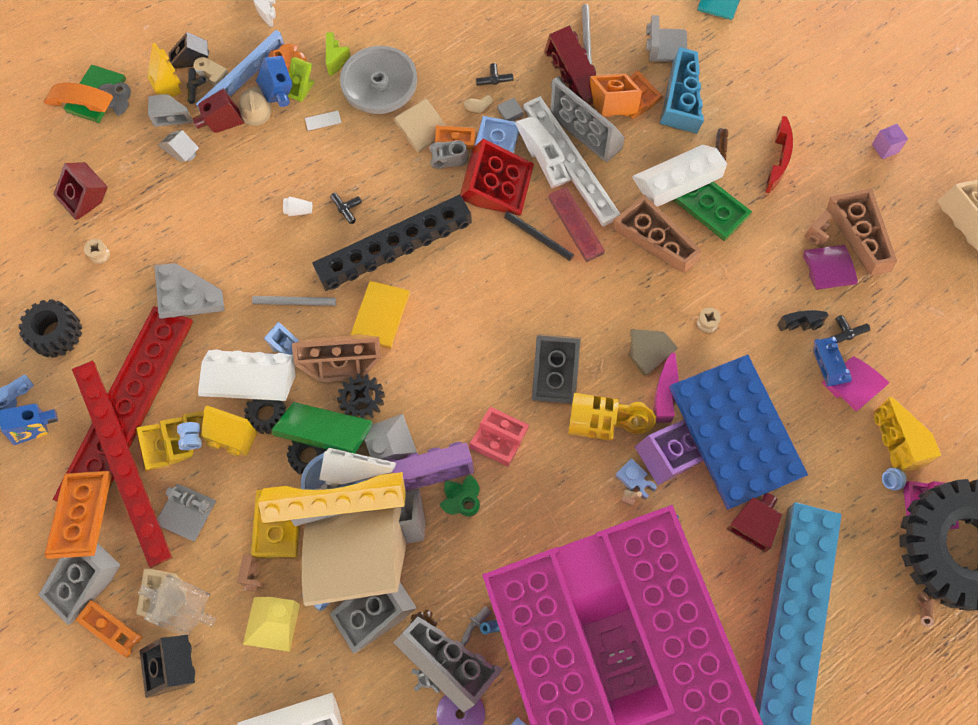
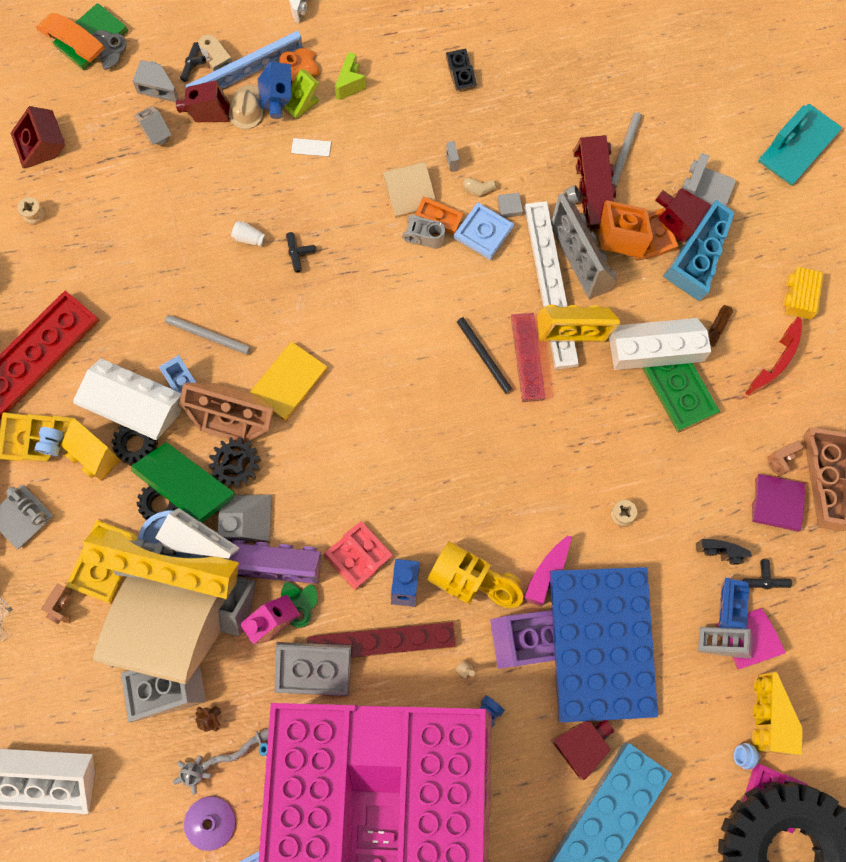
camera: 15 degrees right, 5 degrees up
(161, 74) = (162, 41): yellow slope -> none
(185, 293) = (101, 287): light grey plate -> none
(187, 51) = (199, 22): black slope -> none
(271, 623) = (61, 661): light yellow slope -> none
(378, 79) = (383, 123): light grey dish -> none
(382, 241) = (319, 302): black brick -> none
(425, 19) = (460, 69): none -> black slope
(444, 517) = (264, 624): none -> dark pink torso
(446, 87) = (452, 156): none -> light grey tile
(447, 663) = (211, 771): light grey wedge -> none
(494, 79) = (507, 164): black piece -> none
(496, 179) = (464, 277): red slope -> none
(498, 544) = (312, 669): none -> light grey tile
(543, 146) = (527, 264): white slope -> none
(548, 501) = (392, 639): none -> dark red plate
(550, 440) = (405, 582): none -> blue torso
(556, 368) = (444, 505): dark grey slope -> none
(606, 181) = (576, 323): none -> yellow slope
(633, 476) = (477, 650): light blue plate -> none
(649, 349) = (549, 521): dark tan slope -> none
(654, 67) = (681, 212): none -> dark red torso
(656, 233) = (606, 398): nougat wedge -> none
(778, 97) = (803, 293): none -> yellow brick
(848, 395) = (725, 650): none -> light grey slope

